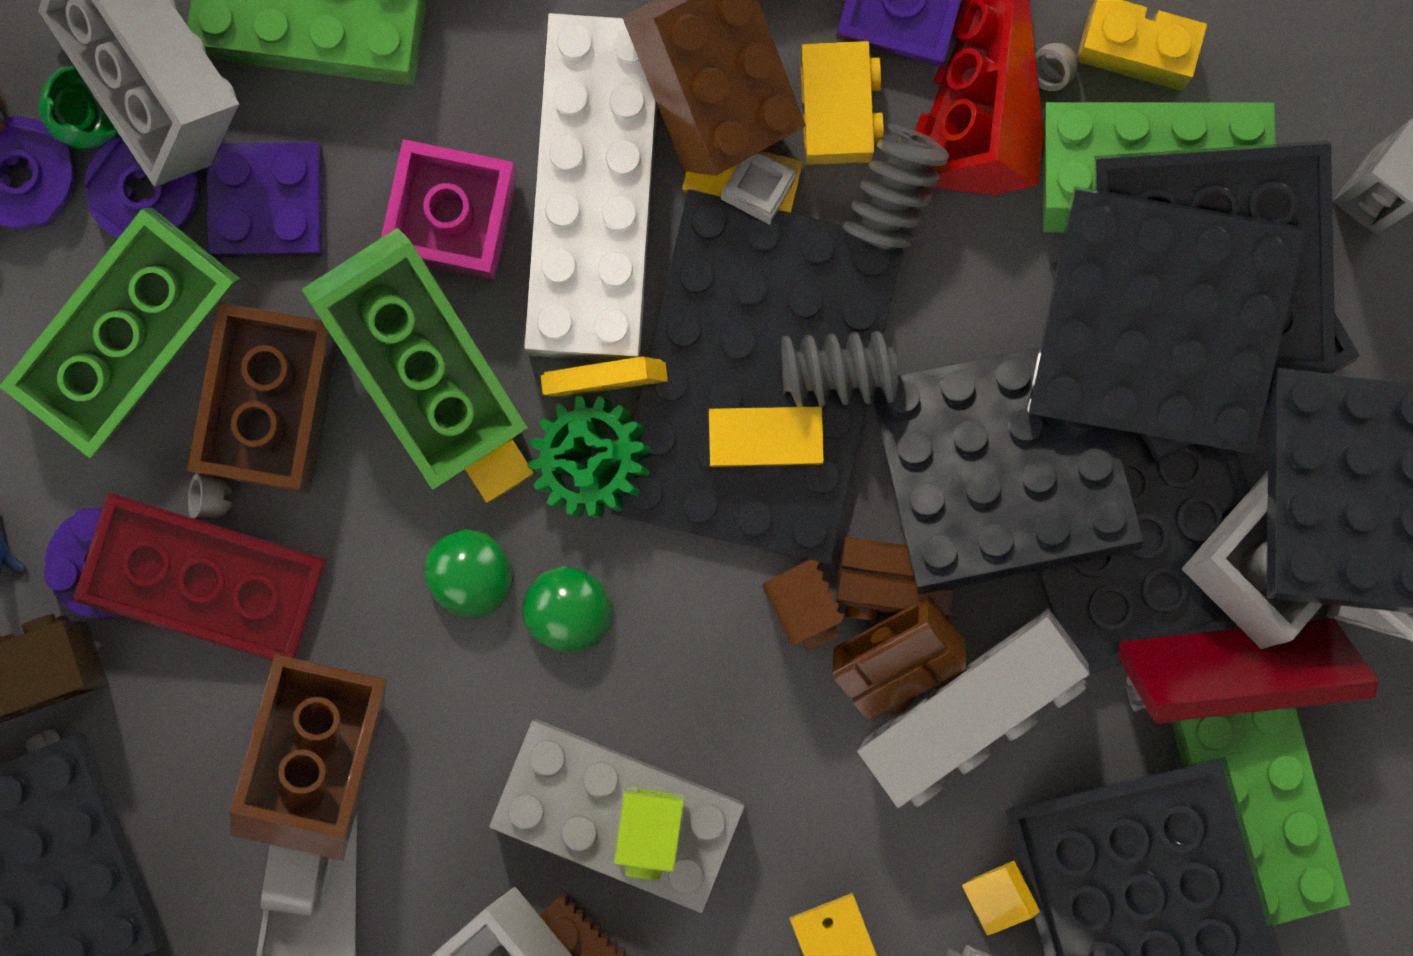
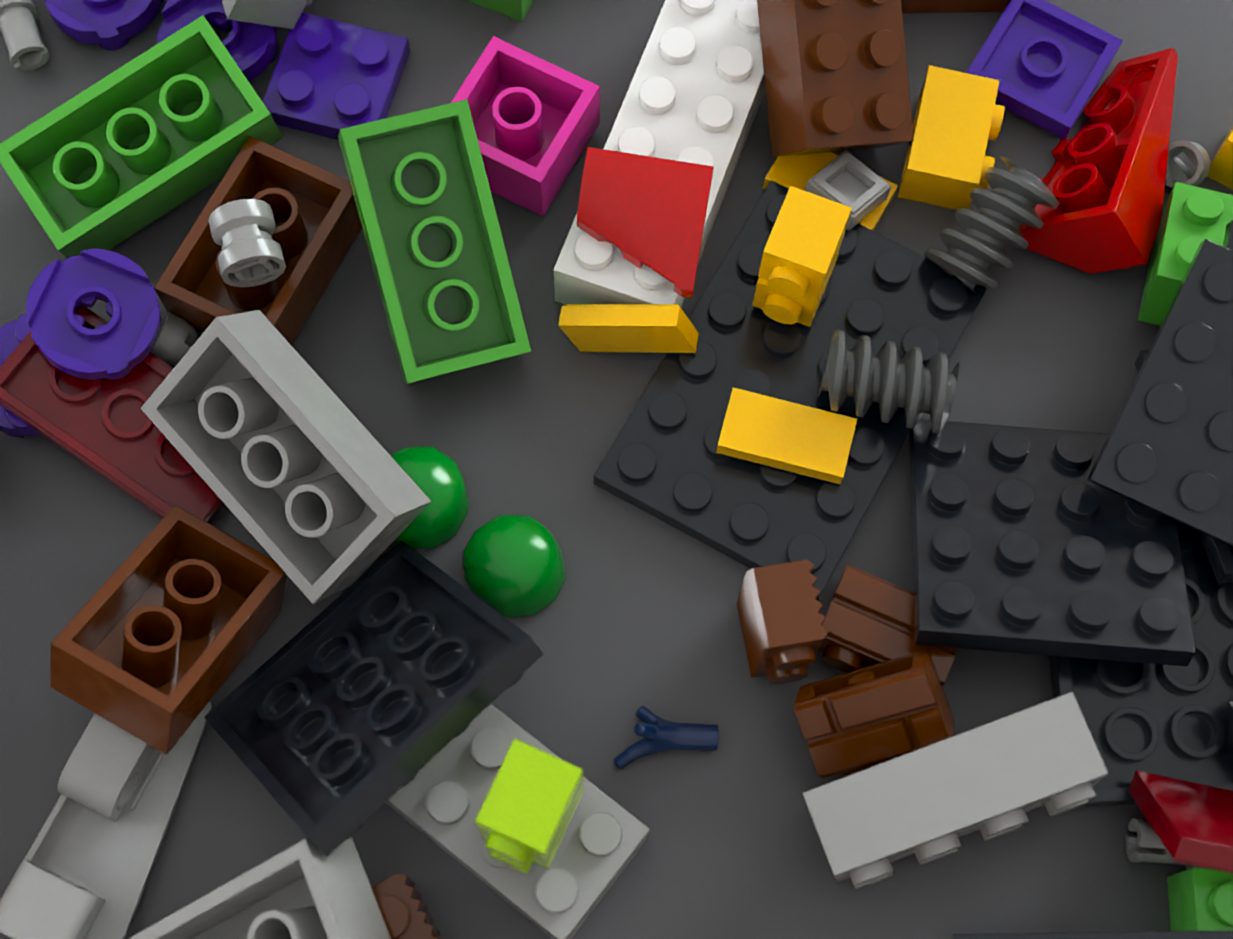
camera: 15 degrees right, 15 degrees down
(167, 535) = (80, 280): none -> dark purple plate
(258, 416) = (248, 251): none -> light grey wheel
(353, 587) = (284, 454): none -> light grey brick
(488, 764) = (370, 693): none -> black plate
(499, 471) = (485, 396): yellow tile -> none
(582, 432) = (590, 409): green gear -> none
(593, 281) = (647, 210): none -> red slope
(735, 284) = (800, 257): none -> yellow piece
(736, 716) = (667, 735): none -> dark blue bar

